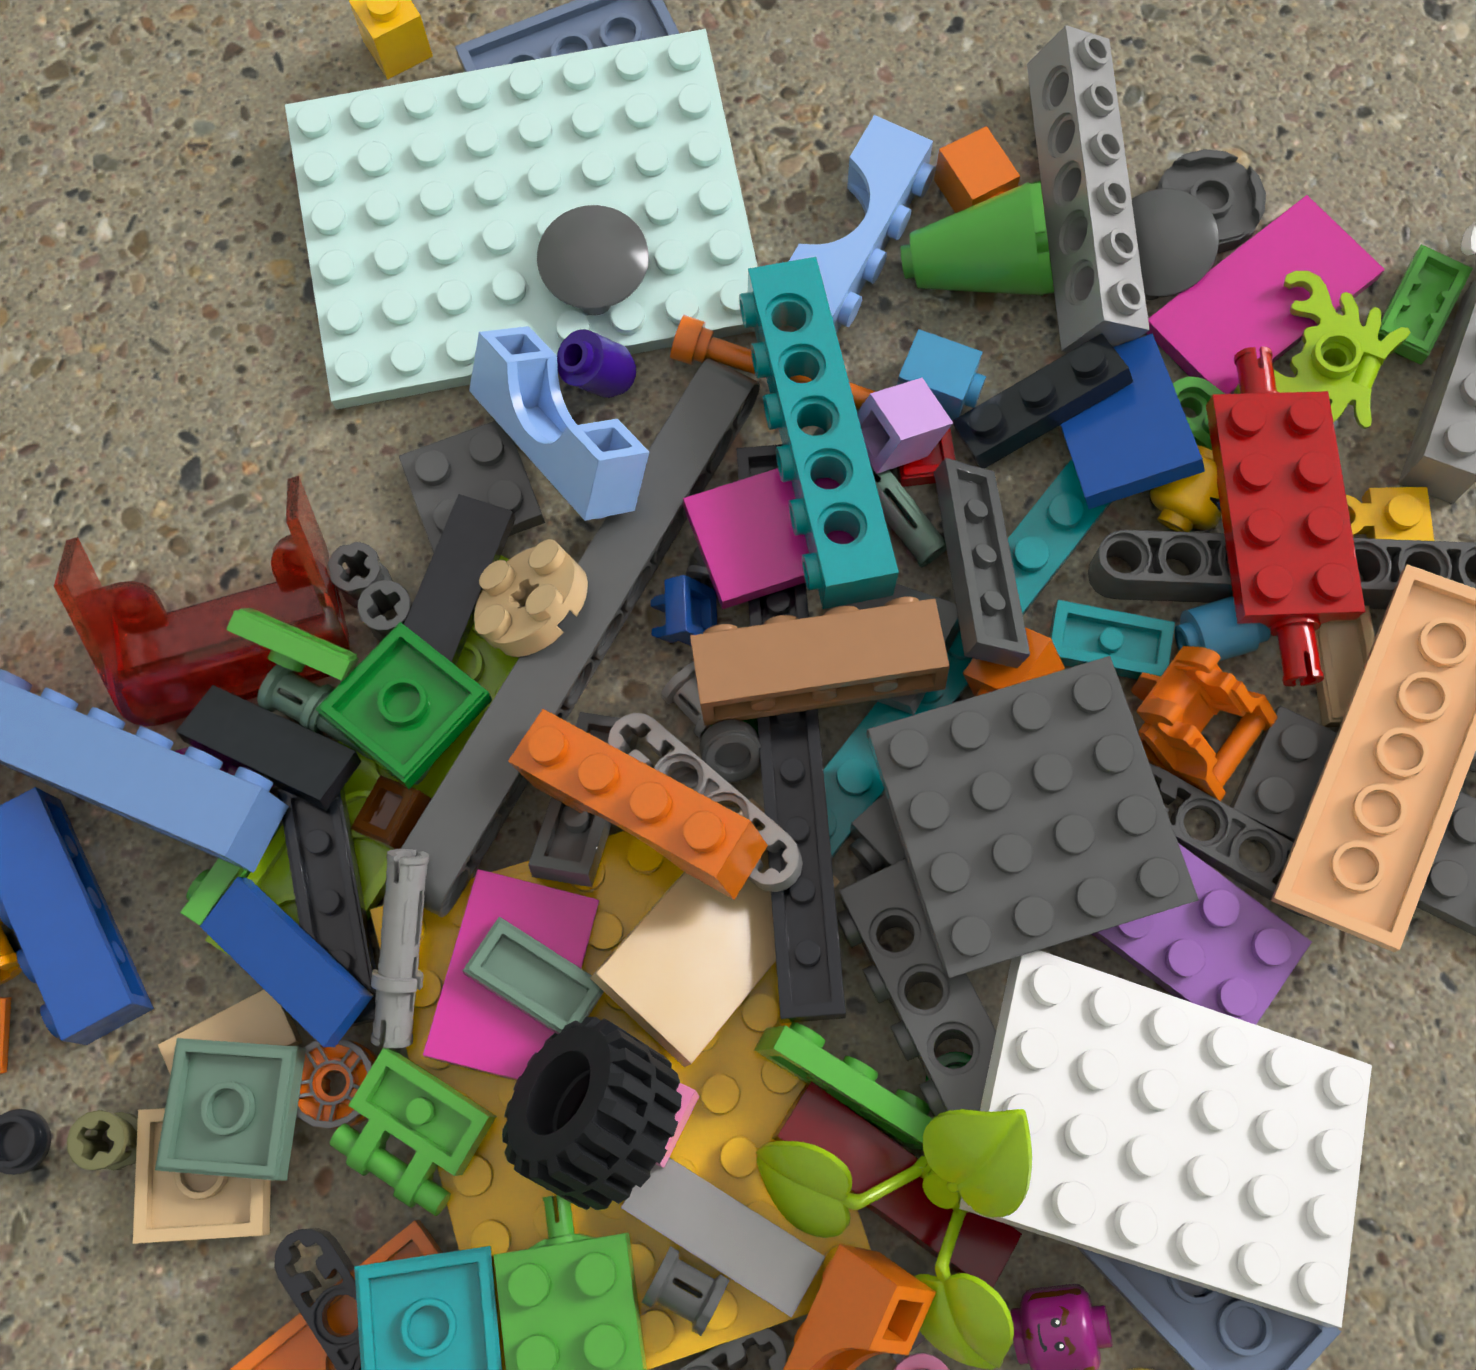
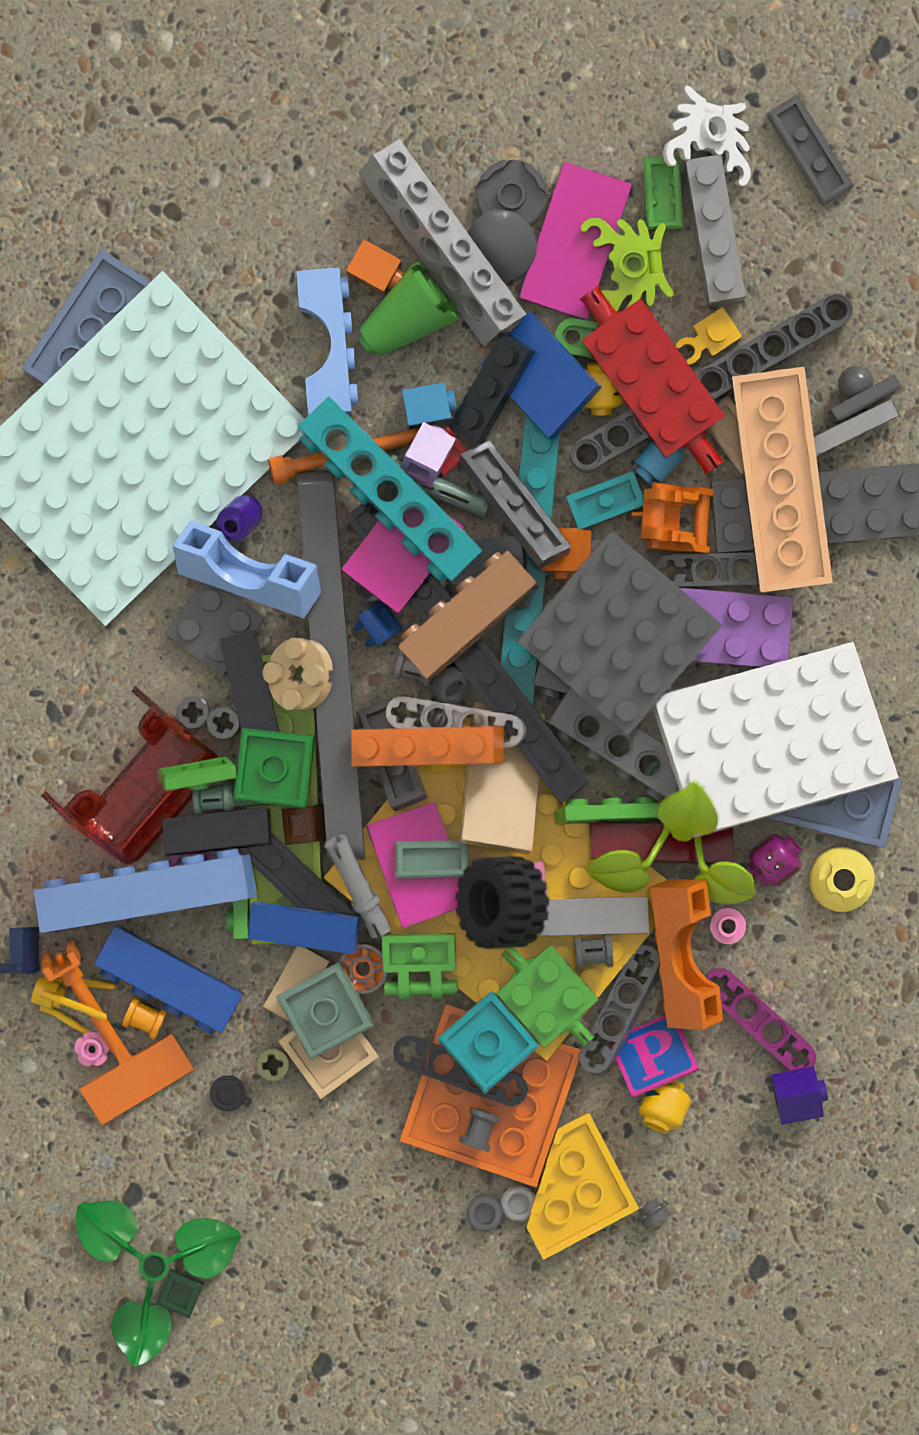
camera: 35 degrees left, 15 degrees up
(592, 258) = (197, 457): dark grey dish -> none

